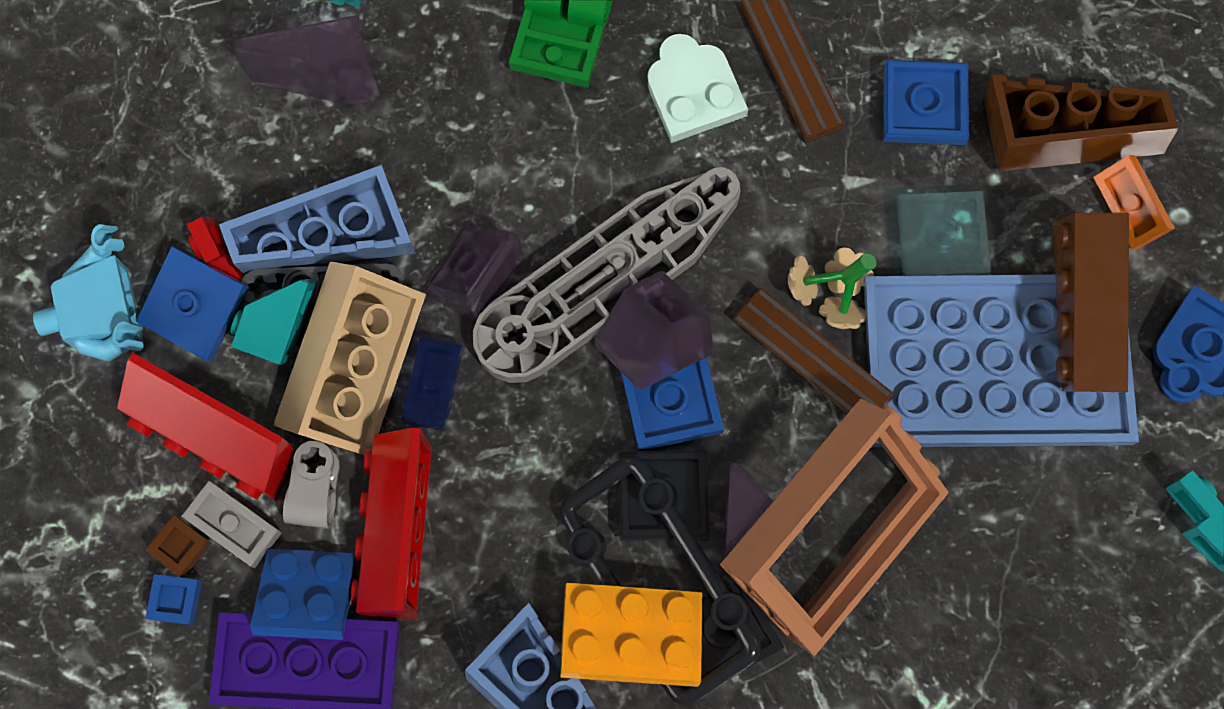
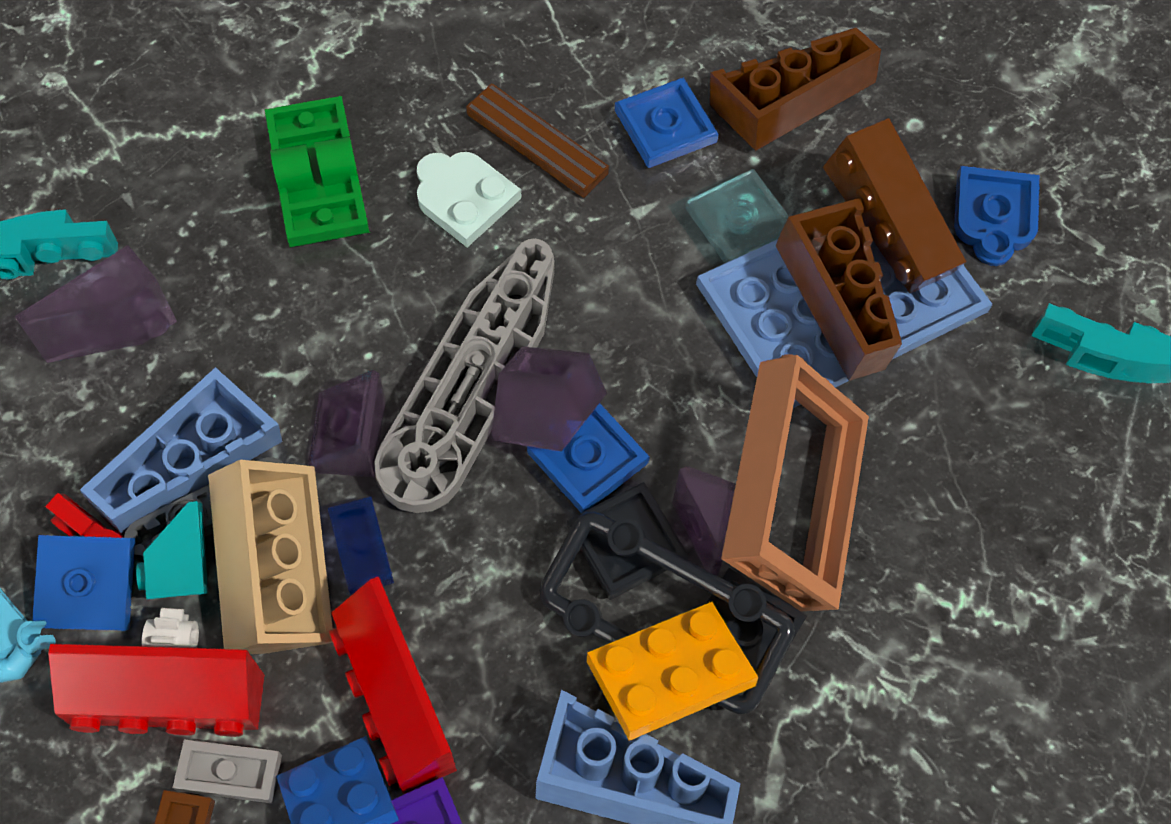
camera: 35 degrees left, 10 degrees down
(238, 386) = (170, 630): none -> white gear
(312, 494) = (293, 699): light grey piece -> none
(809, 353) = (684, 359): reddish brown tile -> none
(842, 275) = (677, 284): tan plant -> none
(992, 352) = (842, 285): none -> reddish brown wedge
(1130, 191) = (861, 112): orange plate -> none

